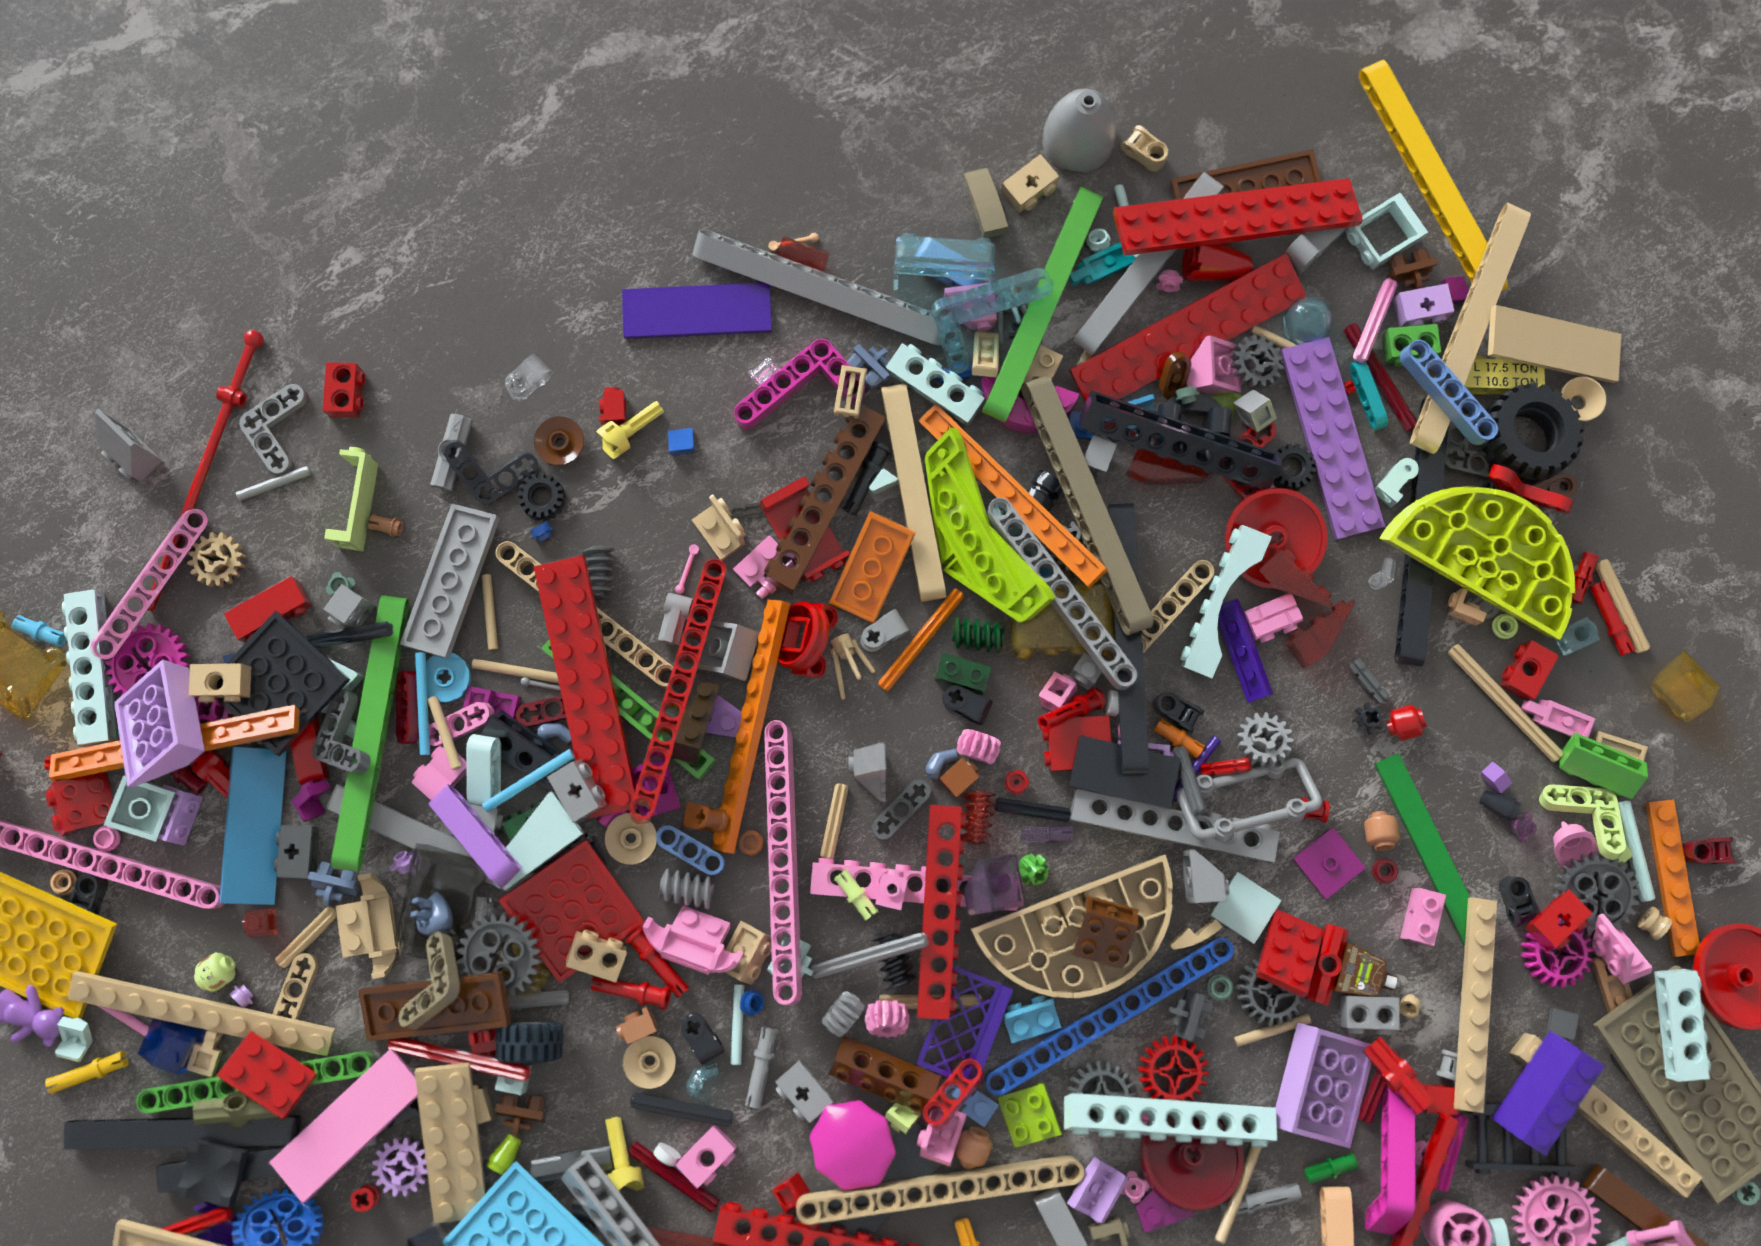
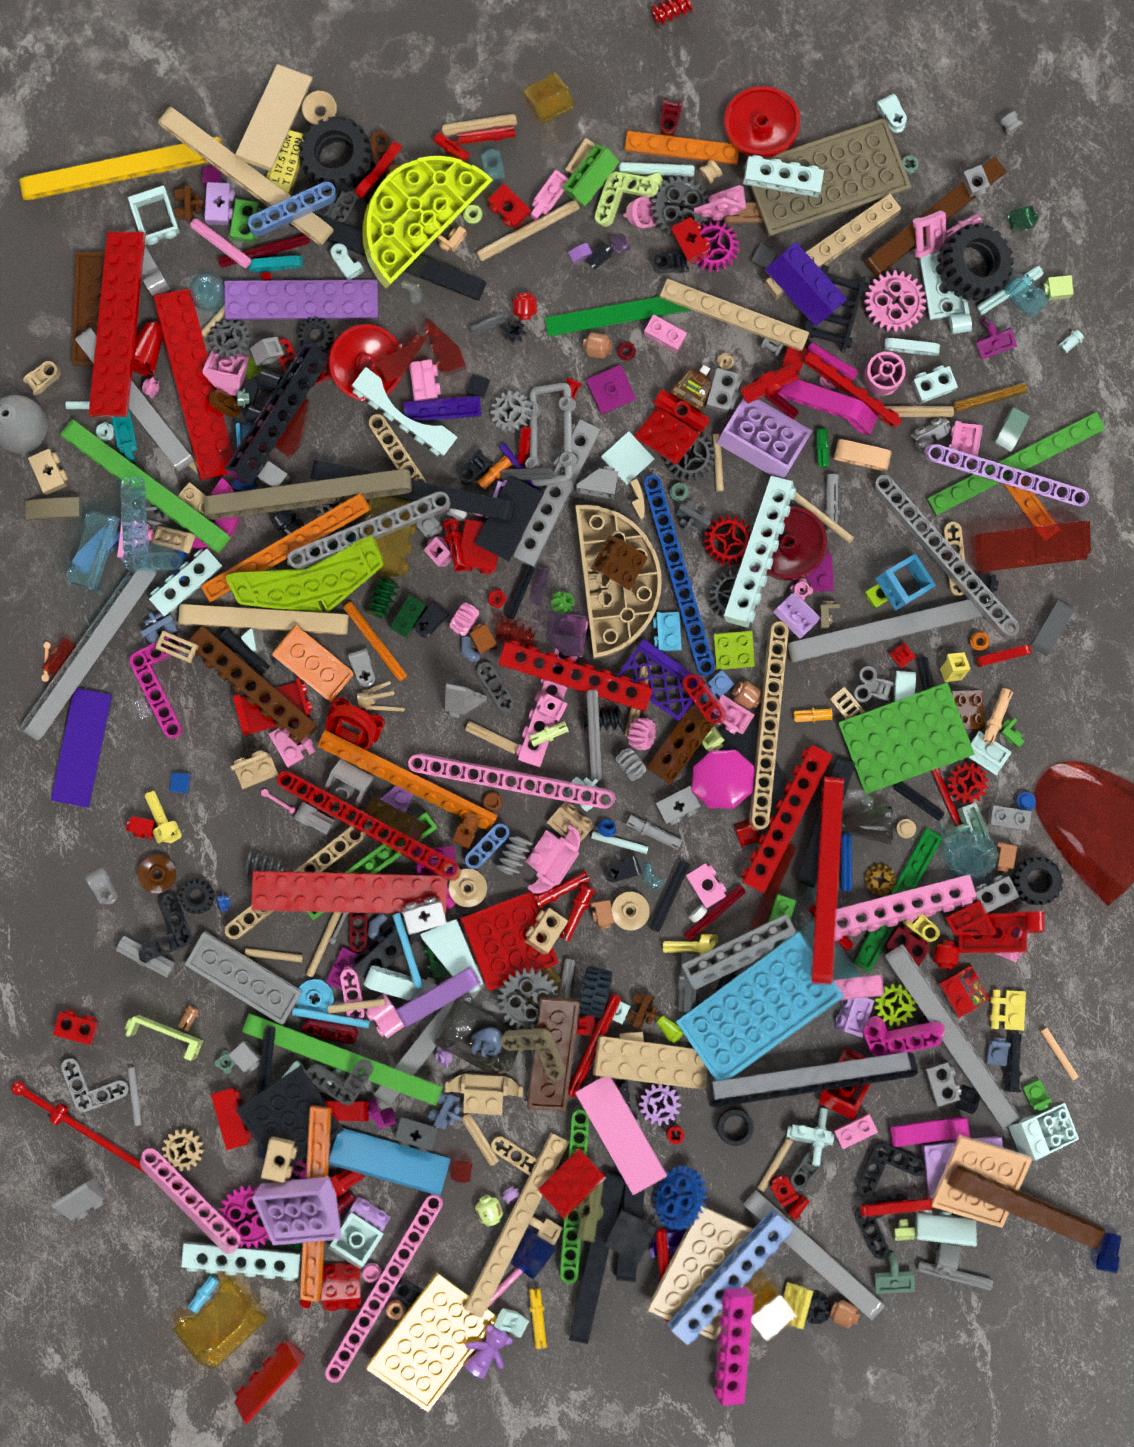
camera: 70 degrees left, 5 degrees up
(1284, 689) = (478, 386): none -> black plate

